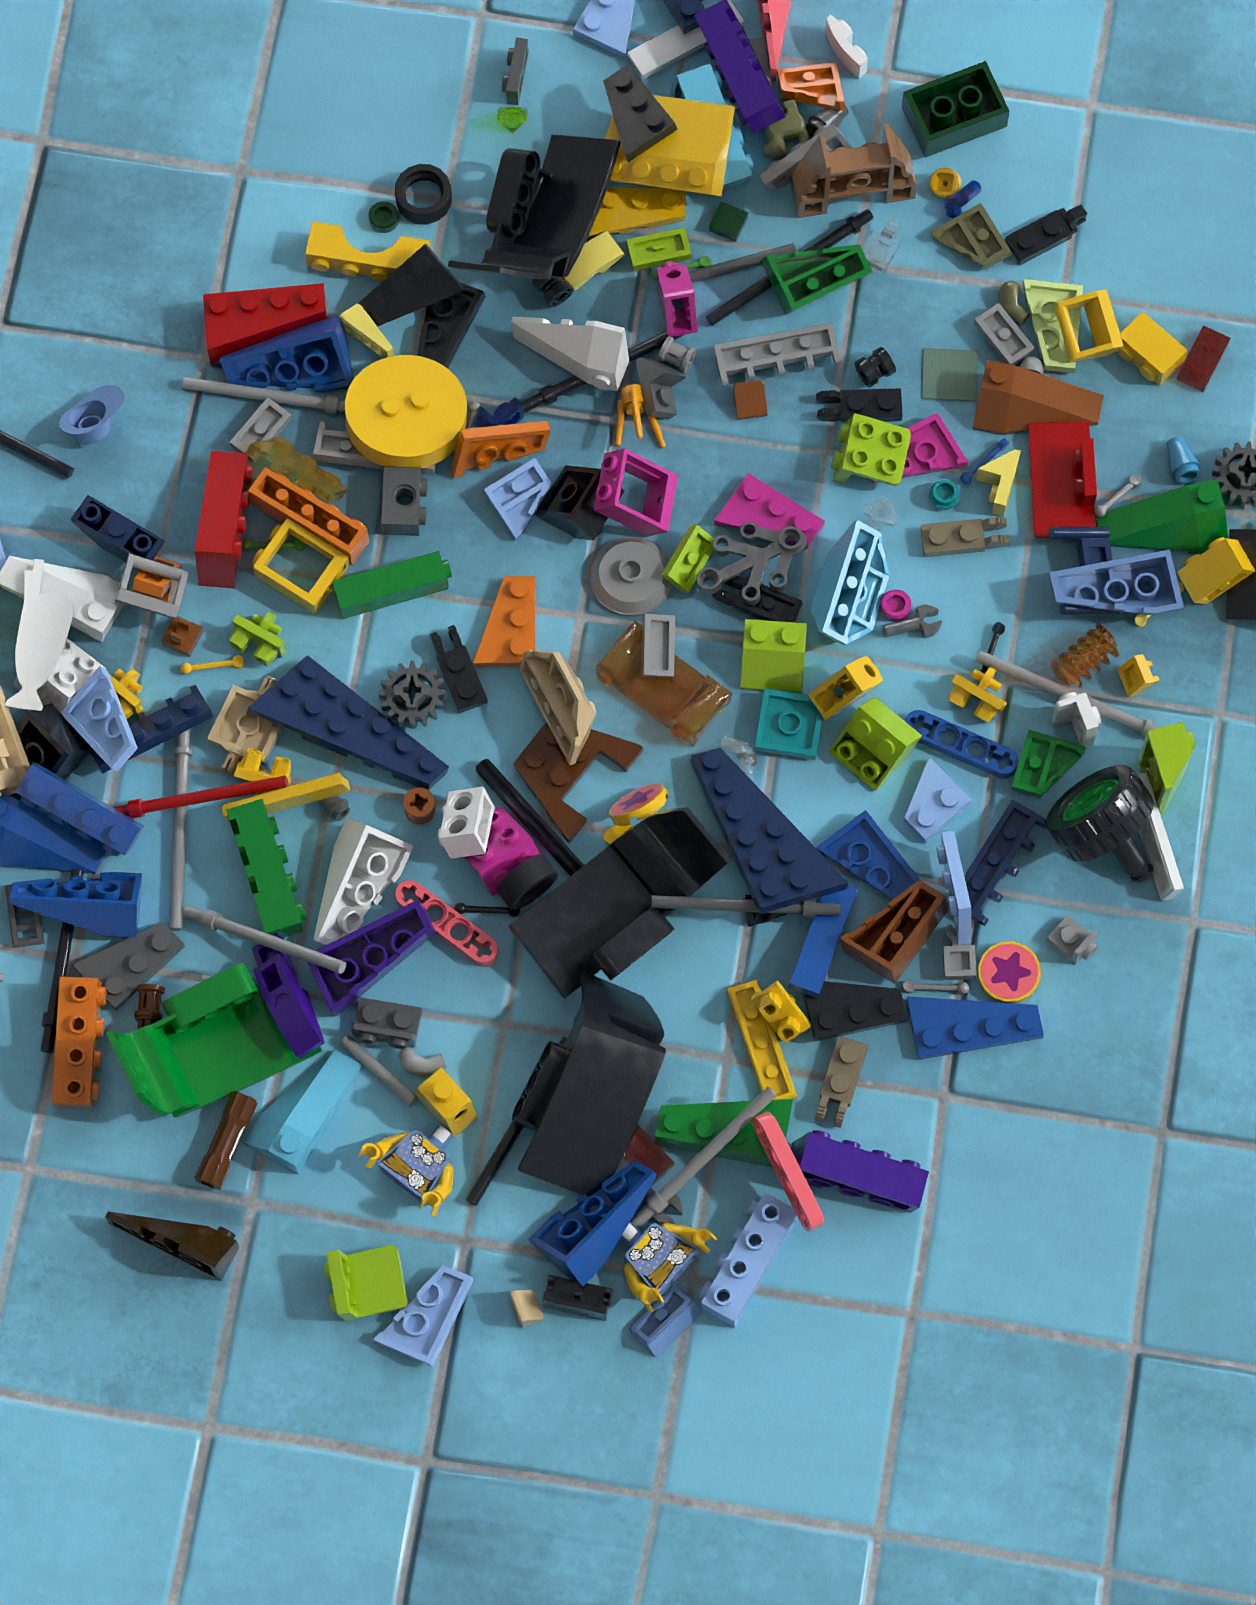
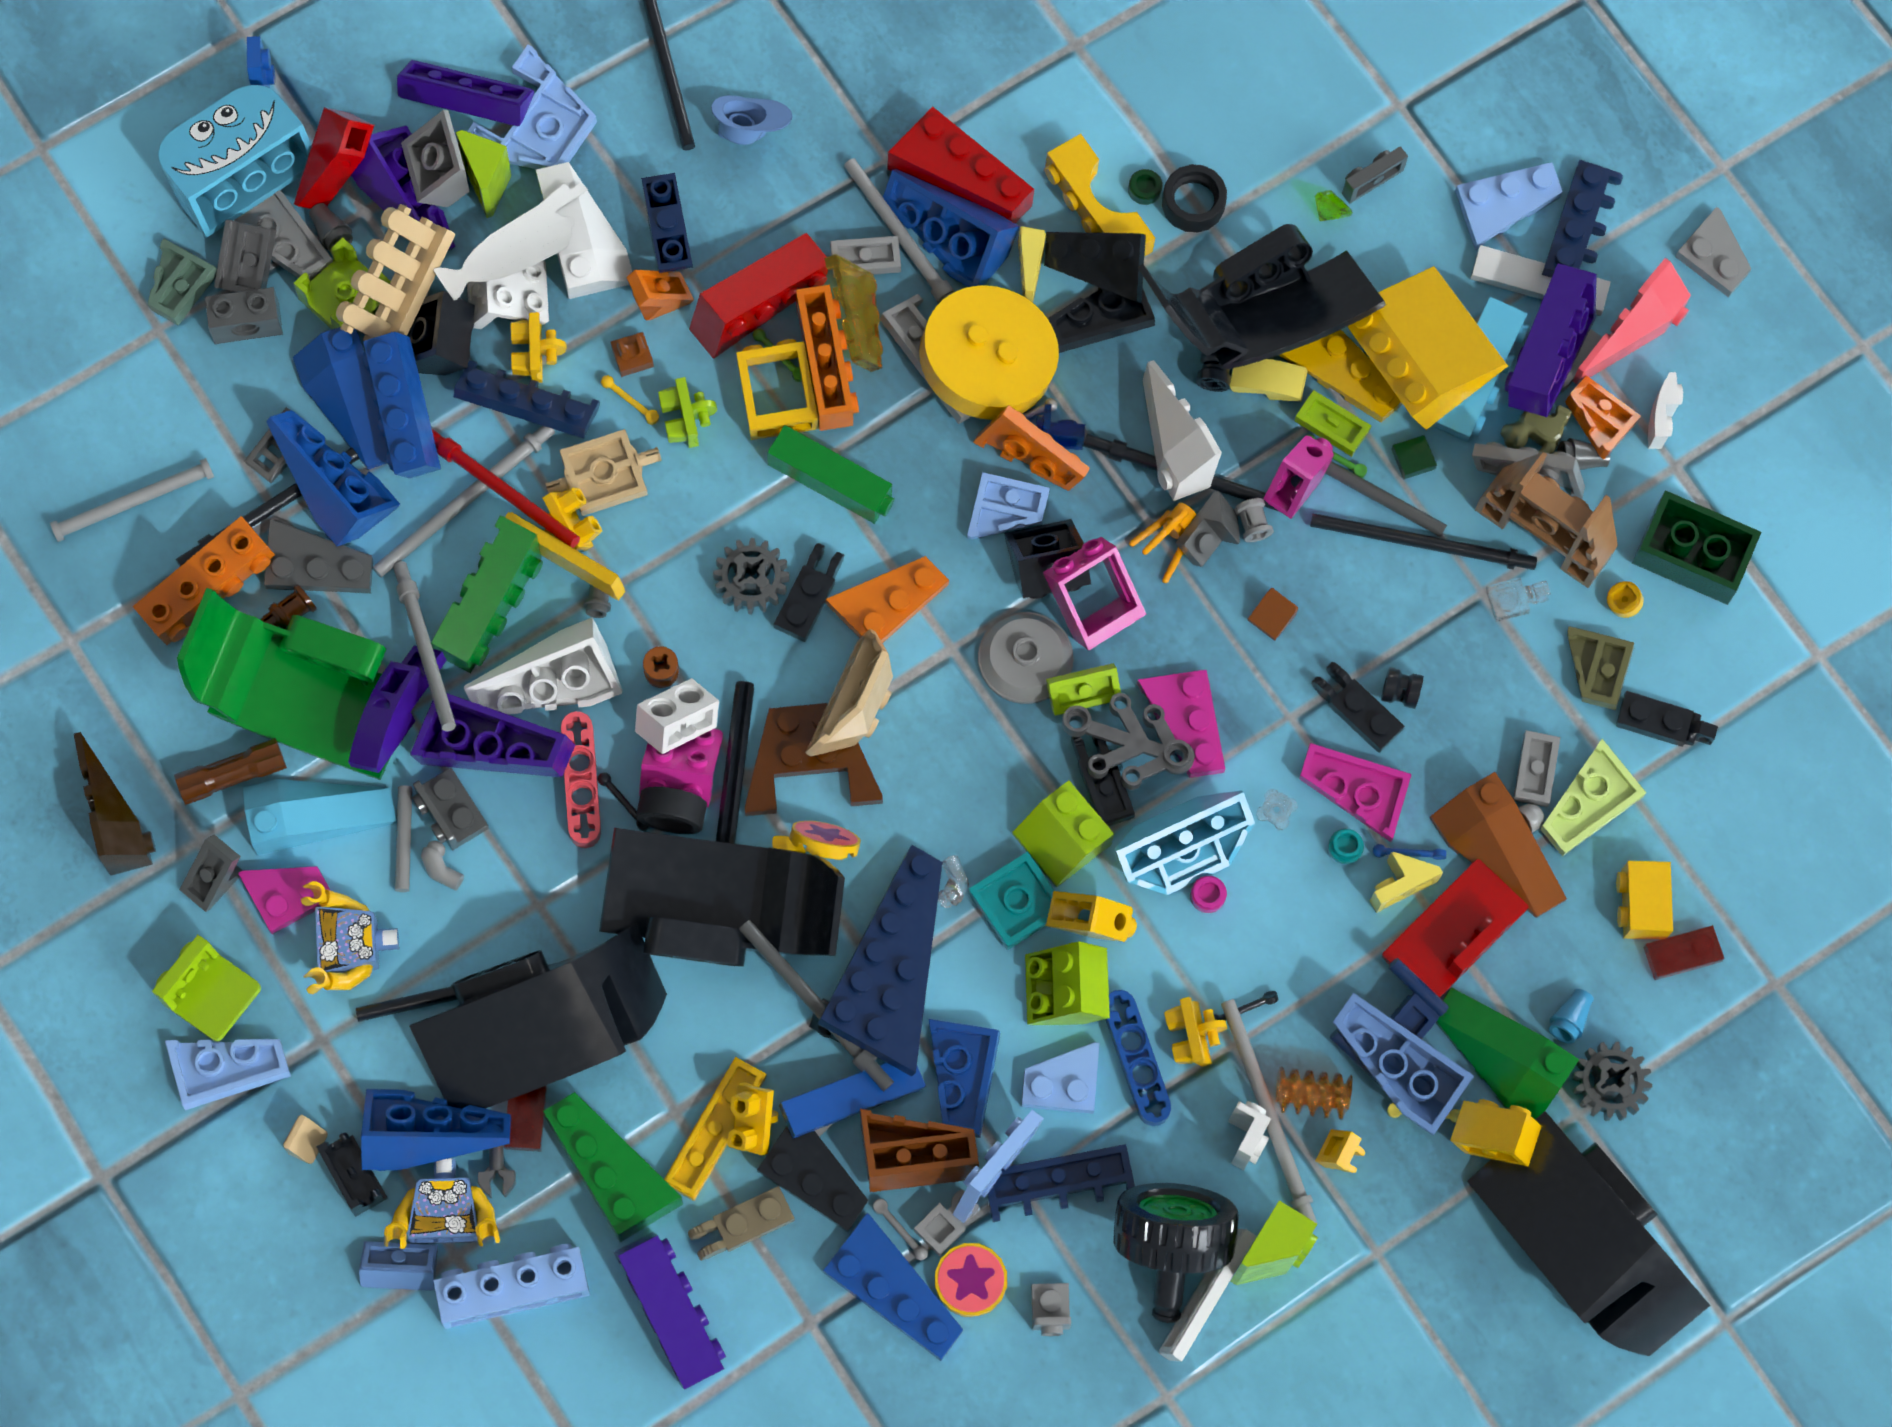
camera: 40 degrees right, 0 degrees up
(101, 720) = (490, 353): light blue wing -> none
(145, 602) = (624, 298): light grey tile -> none
(286, 1211) = (211, 873): none -> dark grey slope
(340, 720) = (673, 536): dark blue wing -> none
(342, 1180) = (279, 893): none -> dark pink wing
(401, 483) = (918, 401): dark grey brick -> none
(445, 1101) = (421, 914): yellow torso -> none
(636, 113) = (1423, 296): black wing -> none
(658, 646) = (978, 731): light grey tile -> none
(658, 1200) = (494, 1165): light grey bar -> none
(681, 703) = (953, 765): clear orange piece -> none
(776, 351) = (1336, 596): light grey hinge -> none
(788, 1170) = (609, 1248): coral beam -> none
(811, 275) = (1432, 565): green wedge -> none
(871, 450) = (1323, 751): lime bracket -> none
(915, 623) = (1208, 924): flat silver bar -> none
(950, 374) = (1459, 755): sand green sticker -> none
(960, 198) = (1615, 623): clear blue arm -> none
(962, 536) = (1322, 893): dark tan hinge -> none
(1009, 301) = (1571, 745): olive arm -> none
(1044, 763) = (1185, 1142): green wing -> none
(1101, 322) = (1625, 839): yellow tile -> none
(1134, 482) = (1514, 994): light grey hinge -> none

